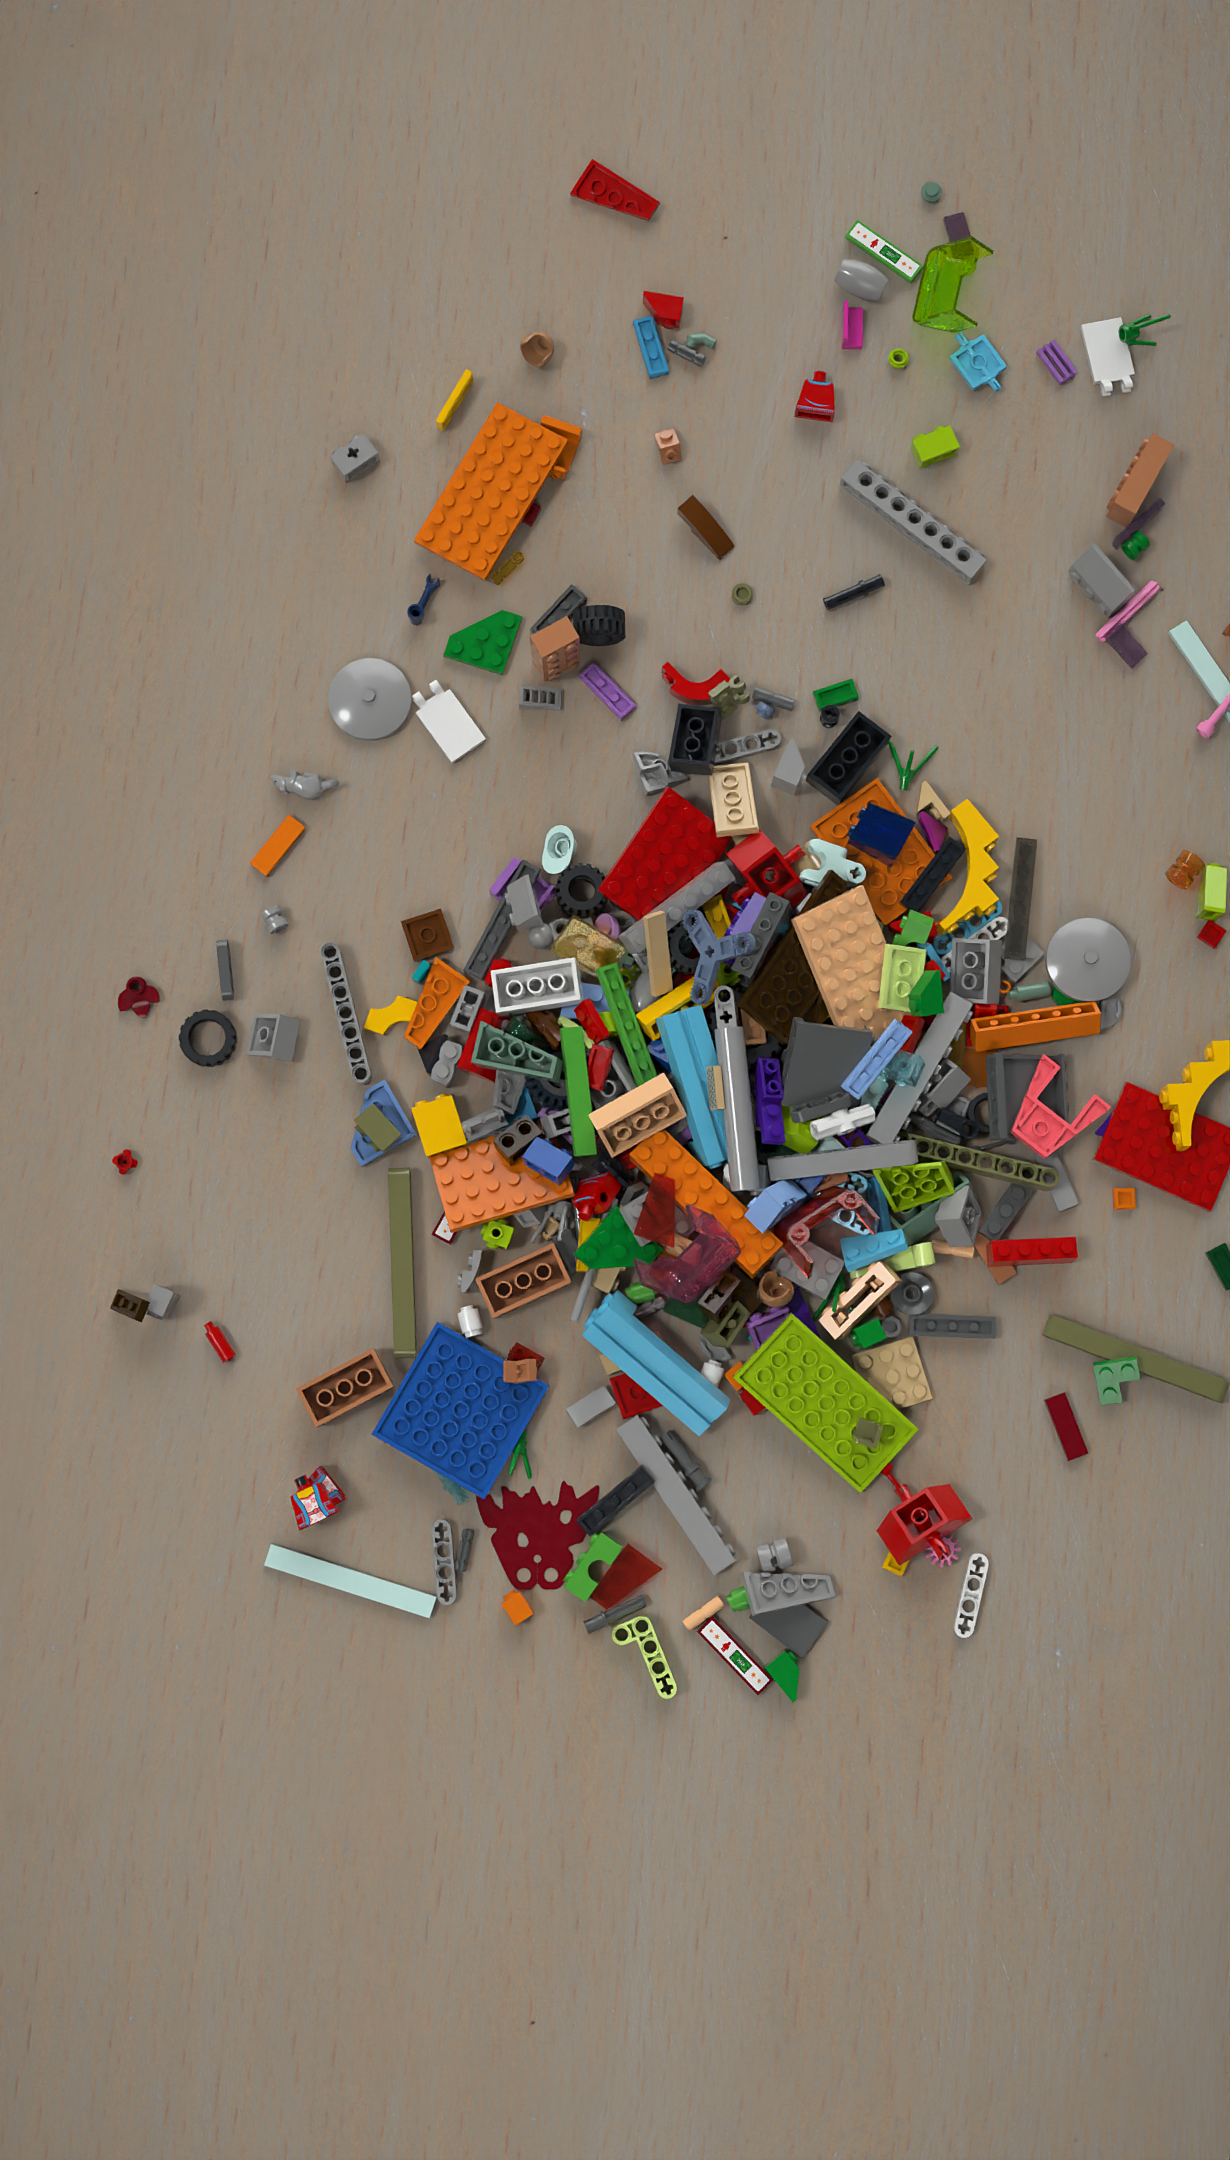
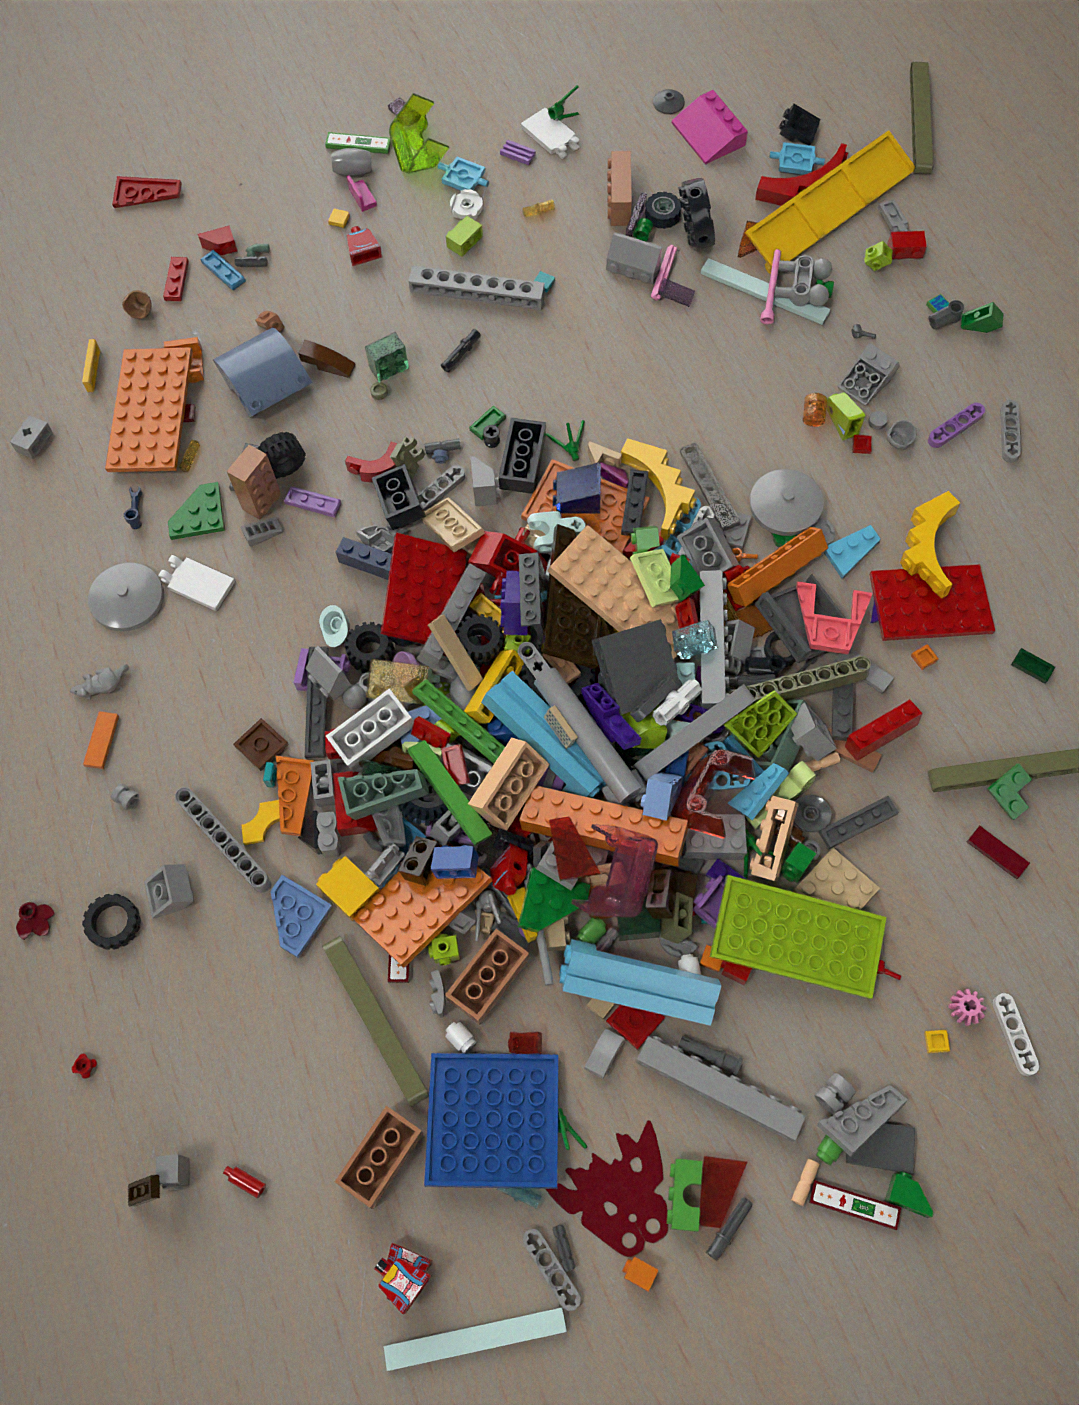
camera: 25 degrees left, 15 degrees down
(225, 970) = (101, 858): dark grey beam -> none
(377, 1128) = (295, 915): olive brick -> none
(485, 1093) = (373, 842): none -> dark grey arm
(519, 1371) = (527, 1054): nougat bracket -> none
(594, 331) = (176, 279): none -> plate
(615, 1500) = (672, 1123): black tile -> none
(627, 789) = (364, 558): none -> dark blue brick
(629, 509) = (262, 371): none -> sand blue slope
(650, 1657) = (784, 1250): yellowish green beam -> none
(724, 949) = (501, 637): sand blue piece -> none
(769, 563) = (387, 357): none -> clear green brick
(775, 1290) = (702, 866): medium nougat hair -> none
(810, 345) = (338, 218): none -> yellow tile
(867, 1432) = (848, 941): olive panel -> none
(876, 1059) = (675, 639): light blue tile -> none
(898, 353) = (406, 197): lime plate -> none
(931, 192) = (370, 96): sand green plate -> none
(941, 1515) = (939, 993): red slope -> none
(959, 393) = (466, 196): none -> white plate
(991, 551) = (545, 278): none -> teal tile
(1030, 991) = (758, 546): sand green cylinder -> none
(1037, 453) = (538, 208): none -> clear yellow axle
(1124, 1045) = (851, 549): none -> medium azure wing
(1173, 519) = (663, 210): none -> black wheel
(1198, 567) = (697, 213): none -> black brick

